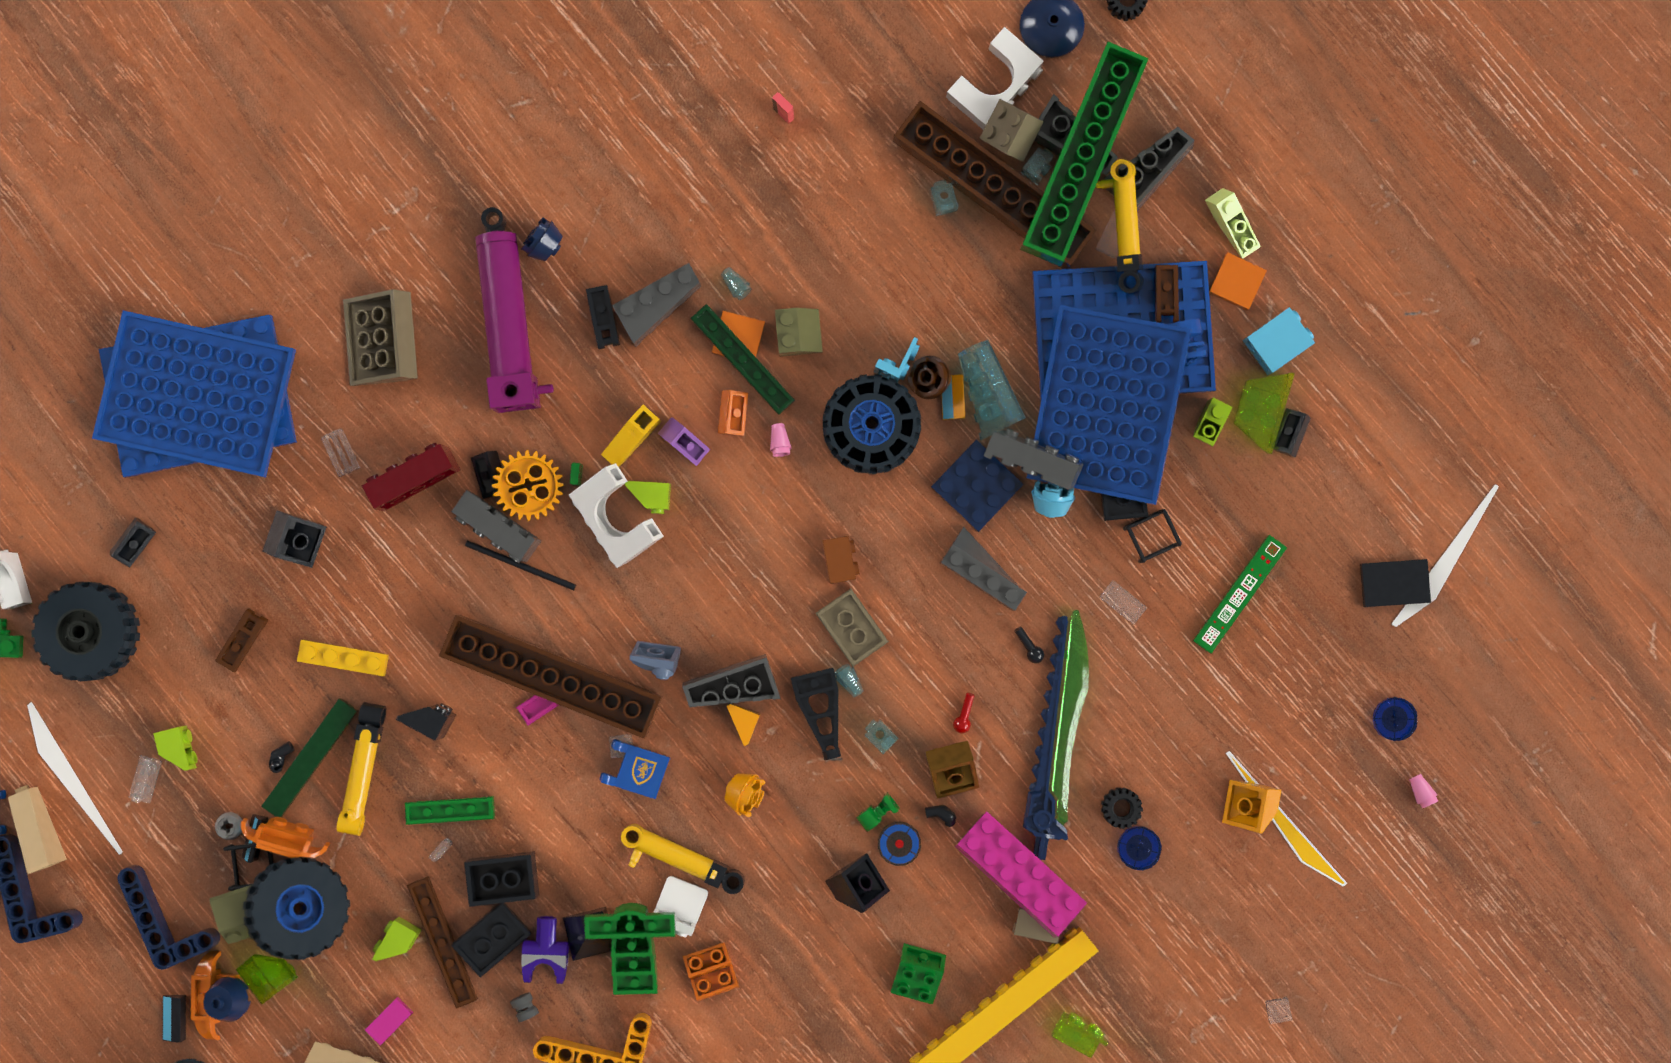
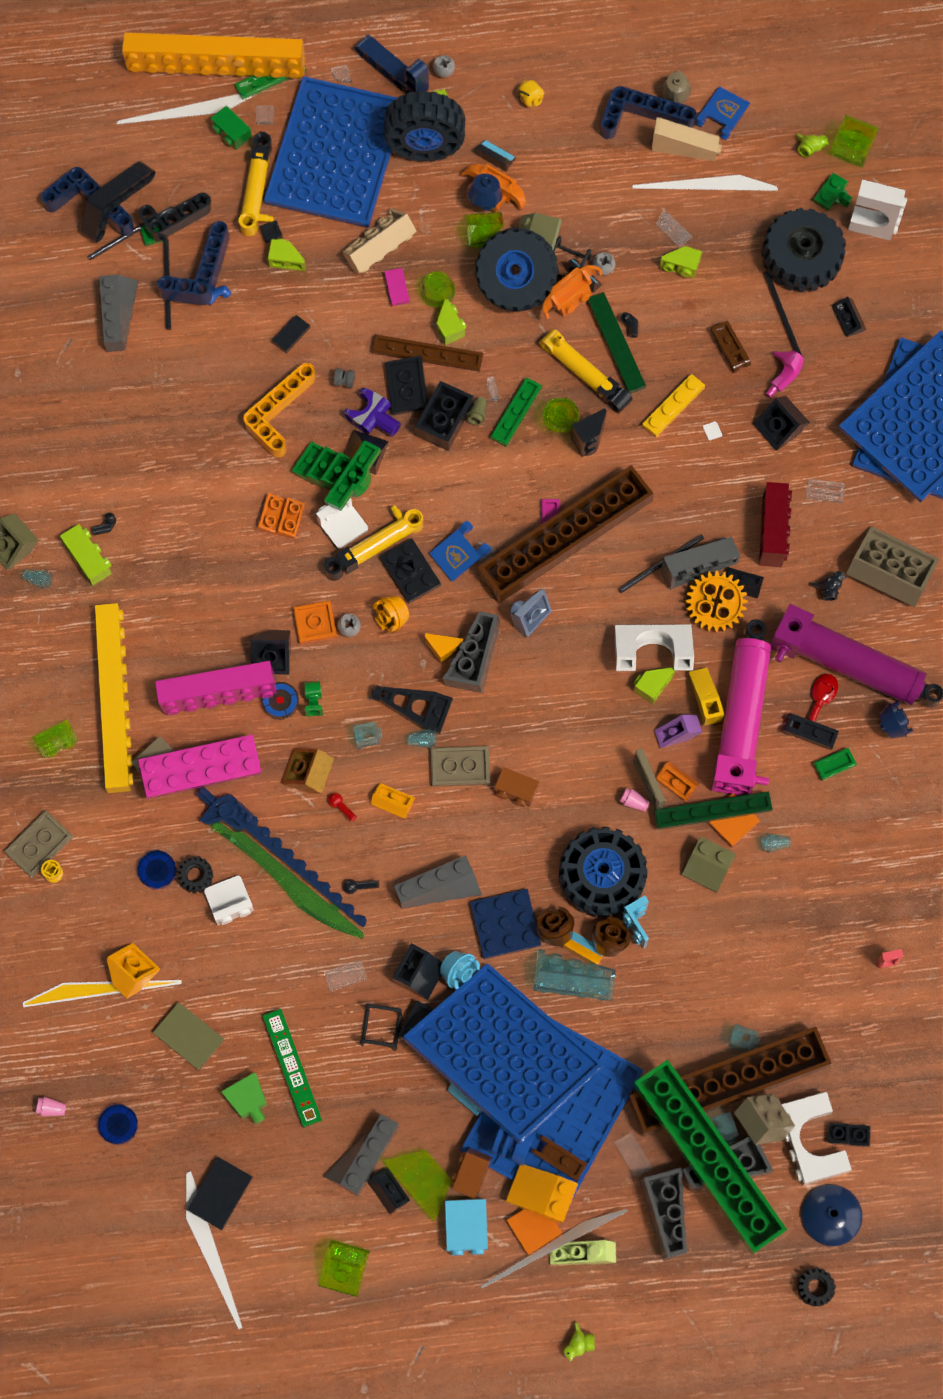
camera: 125 degrees right, 15 degrees down
(79, 1027) = (530, 93): none -> yellow head
(158, 923) = (566, 181): dark blue beam -> none
(172, 609) = (782, 313): none -> black axle
(222, 565) = (792, 366): none -> dark pink animal
(345, 603) = (712, 430): none -> white sticker
(365, 978) = (437, 288): none -> clear neon green cone
(427, 761) = (560, 415): none -> clear neon green cone
(439, 386) = (830, 586): none -> black animal
(476, 848) = (477, 412): none -> olive cone
(555, 328) = (823, 693): none -> red piece
(576, 474) = (703, 640): green tile -> none
(620, 274) = (835, 764): none -> green tile
(628, 388) = (743, 715): none -> dark pink piece
(656, 302) = (796, 773): dark grey wedge -> none
(685, 805) = (410, 571): none -> black plate
(754, 436) = (648, 779): none -> dark tan tile
(788, 822) = (350, 631): none -> light grey piece
(798, 863) = (315, 622): none -> orange tile
(919, 974) = (179, 654): green bracket -> none
(927, 670) = (392, 800): none -> light orange slope
(935, 916) = (216, 688): none -> dark pink brick
(943, 813) = (280, 745): black arm -> none
(953, 435) = (555, 926): none -> reddish brown cone
(969, 51) = (849, 1135): none -> black slope
(1034, 458) = (499, 971): dark grey wedge -> none
(1078, 535) = (418, 972): none -> black slope
(1125, 758) = (229, 900): none -> white bracket
(1129, 256) = (604, 1144): yellow piece -> none
(1188, 977) = (38, 844): none -> dark tan tile
(1207, 945) = (53, 875): none -> yellow wheel
(1209, 288) = (542, 1193): none -> light orange slope
(1212, 421) = (438, 1129): lime slope -> none
(1221, 241) = (567, 1237): none -> white sticker
(1231, 365) = (472, 1172): none -> dark orange brick
(1273, 709) = (188, 1036): none -> olive tile
(1287, 475) = (361, 1160): none -> dark grey wedge
(1296, 615) = (247, 1098): none -> bright green torso
(1314, 175) = (579, 1343): none -> lime animal
(1387, 426) = (344, 1268): none -> clear neon green slope

